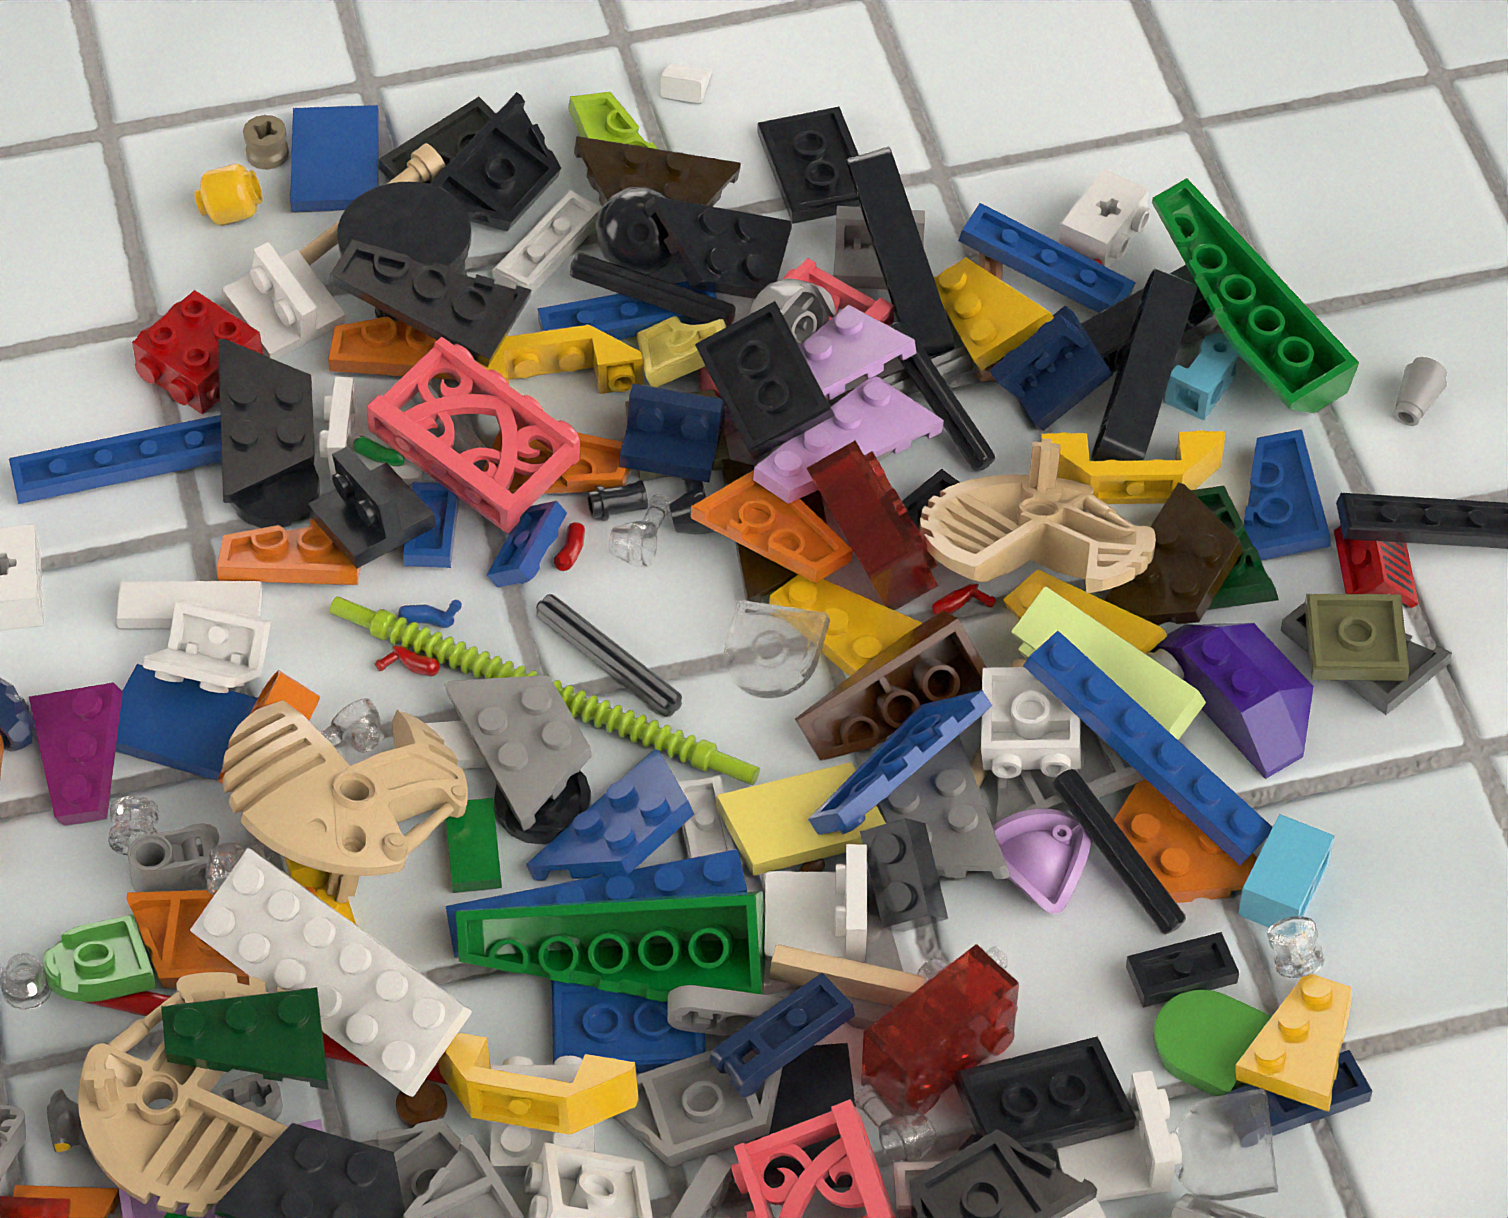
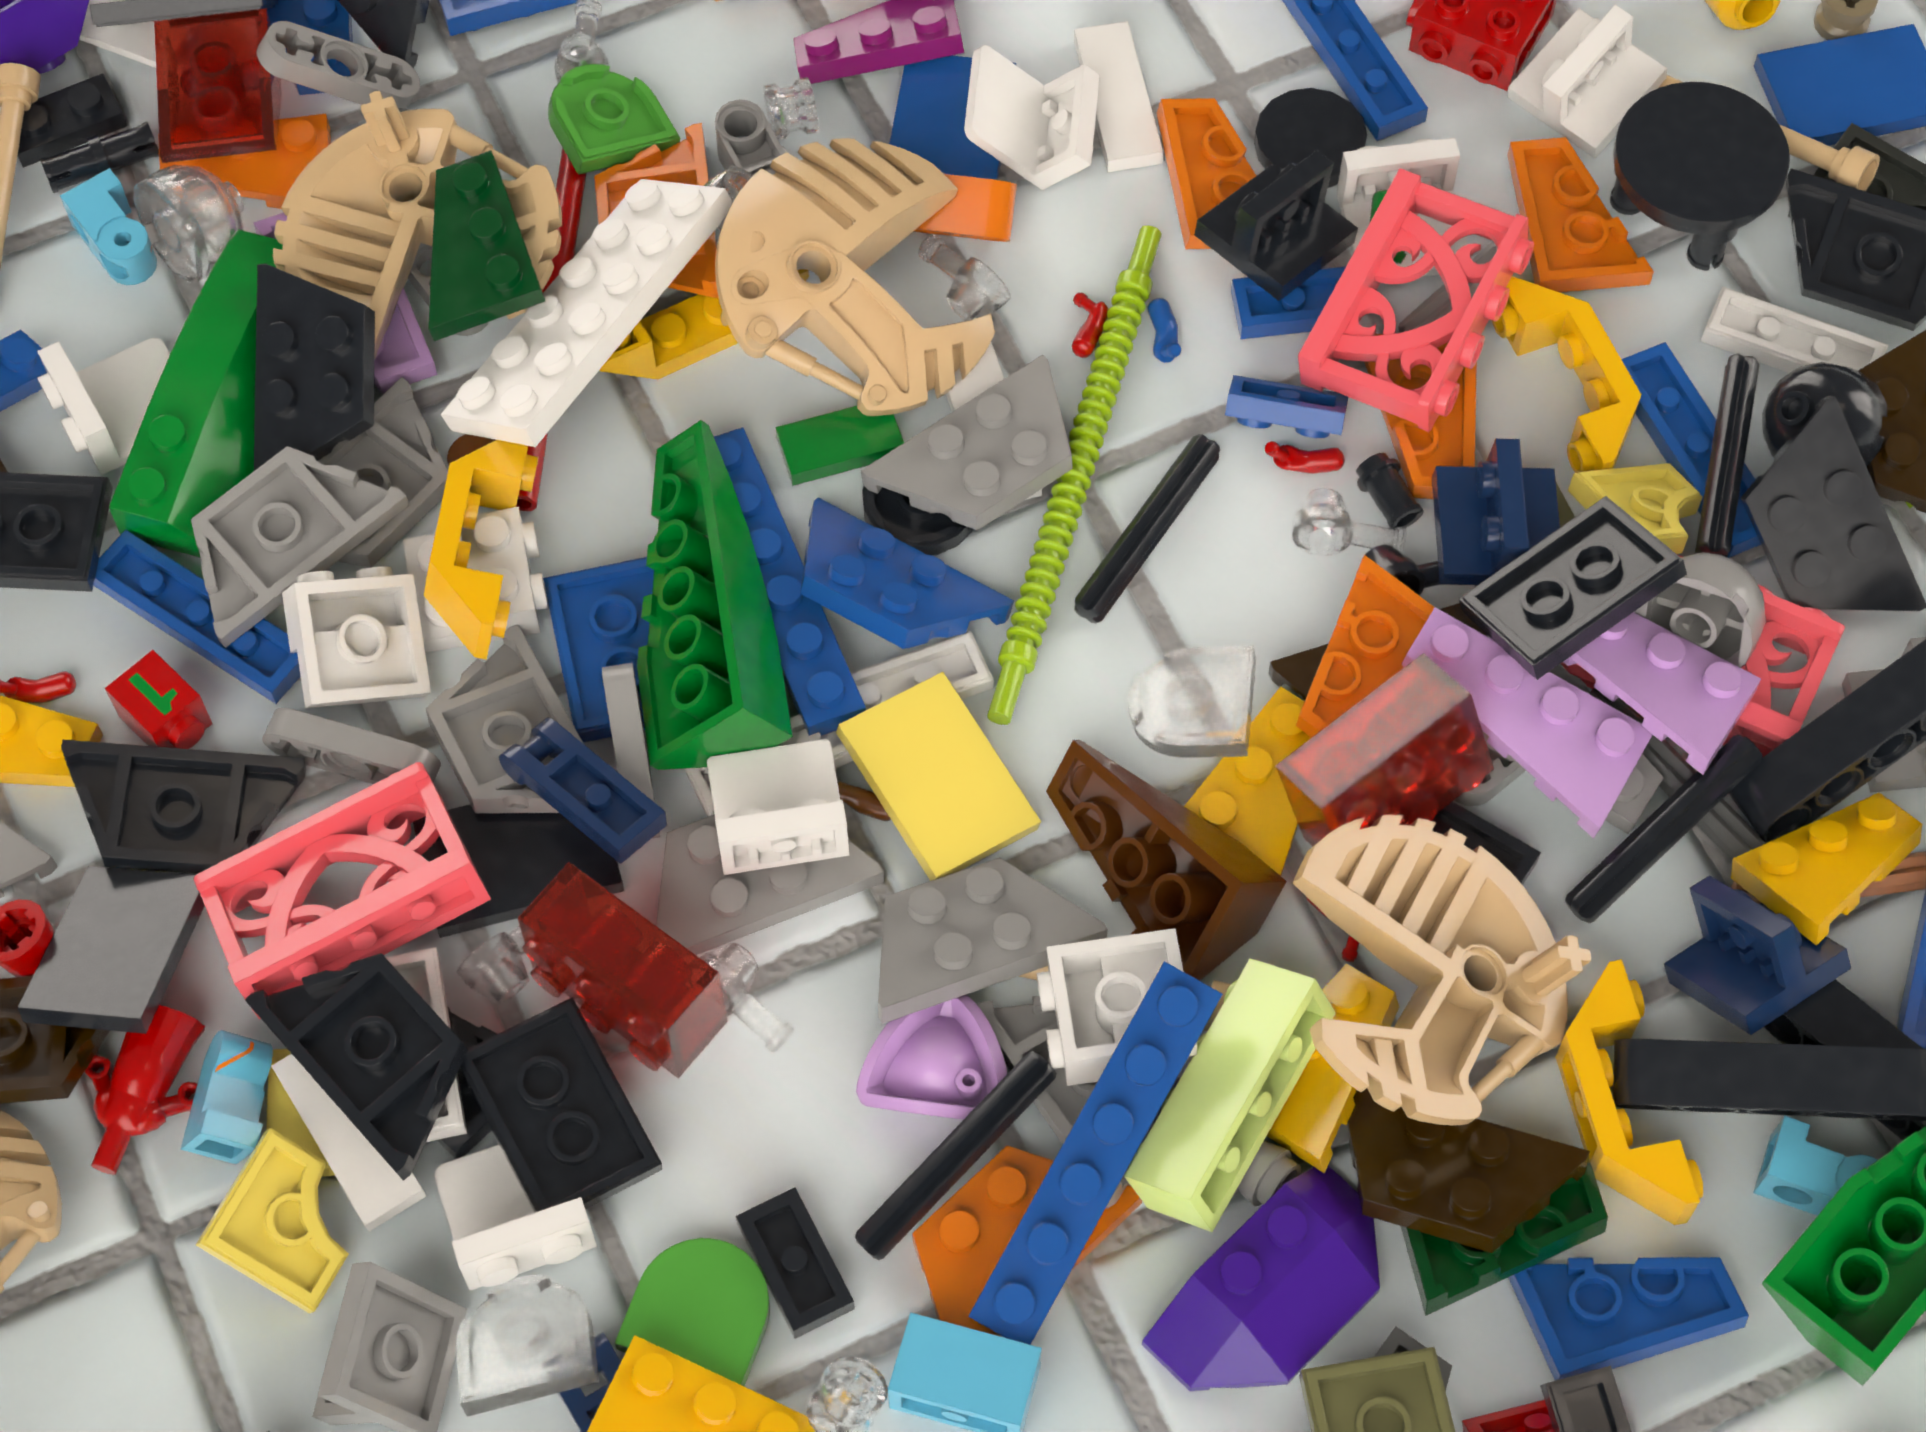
camera: 80 degrees right, 10 degrees up
(263, 419) = (1385, 89): black wing -> none
(432, 297) = (1597, 214): black wing -> none
(849, 976) = (685, 850): tan tile -> none
(897, 759) = (1035, 865): blue wing -> none
(904, 875) = (848, 893): black brick -> none

